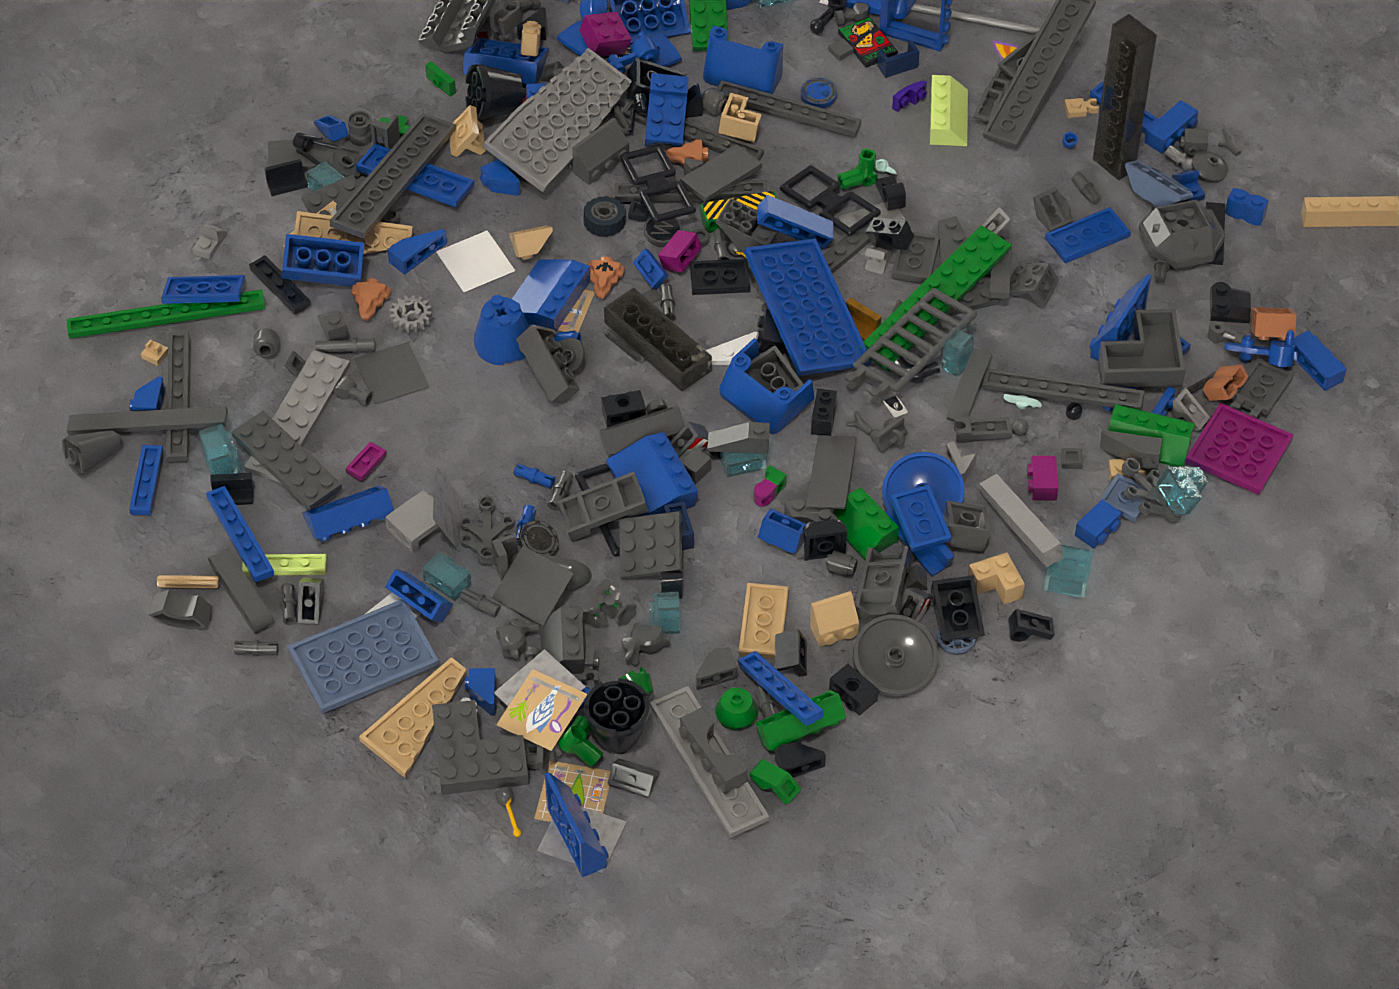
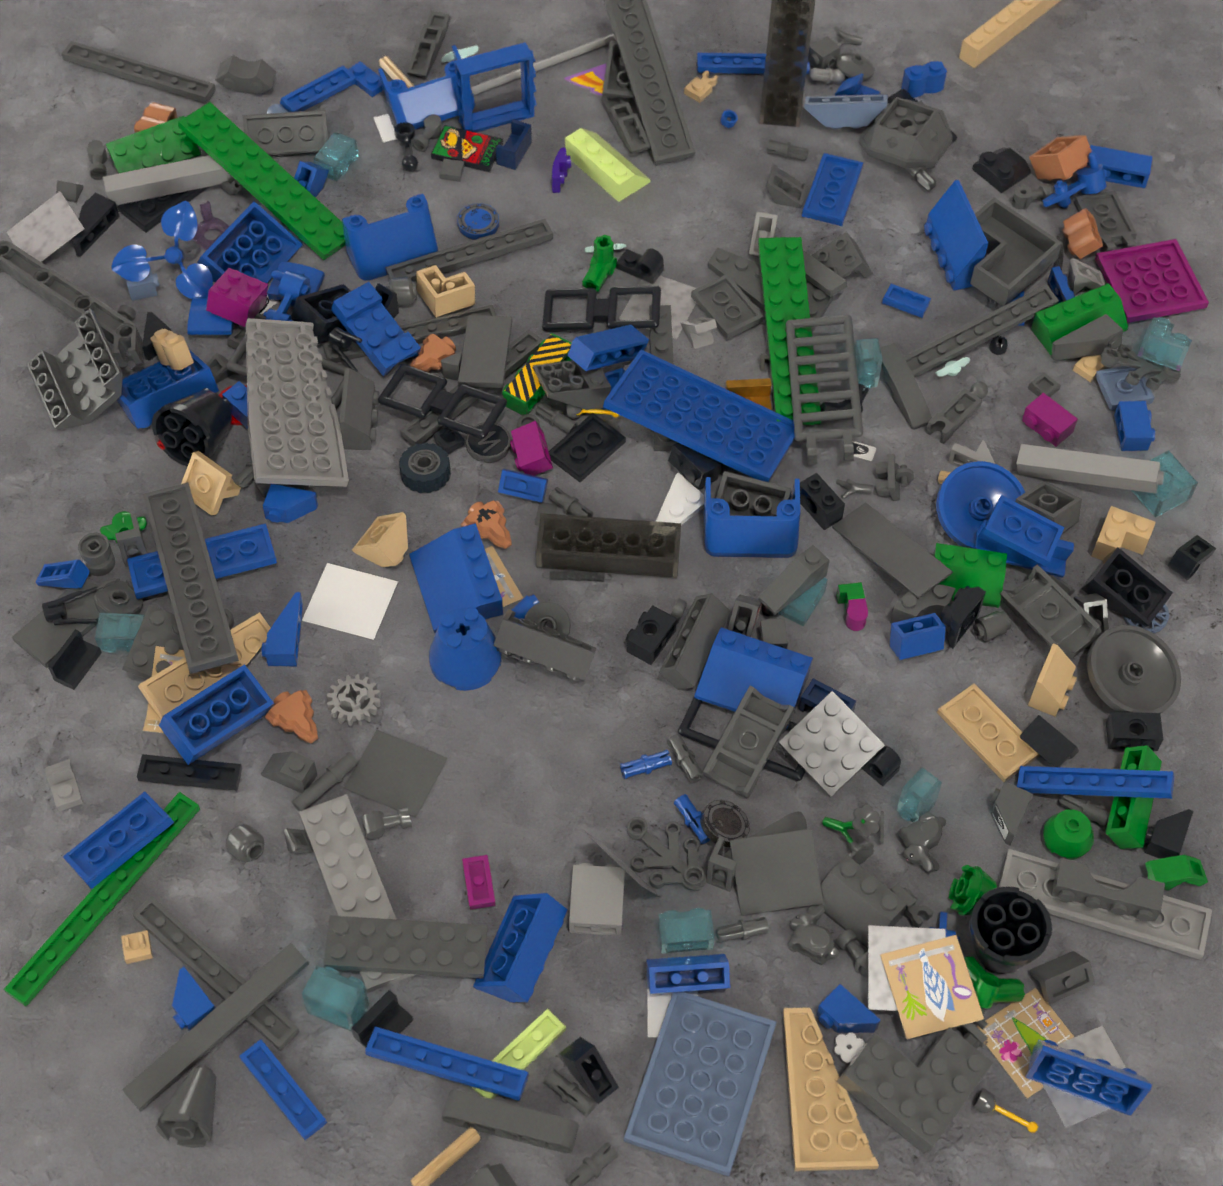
camera: 45 degrees left, 5 degrees up
(440, 78) = (119, 449): green plate -> none
(890, 233) = (691, 300): black brick -> none
(1044, 338) = (906, 300): none -> blue plate

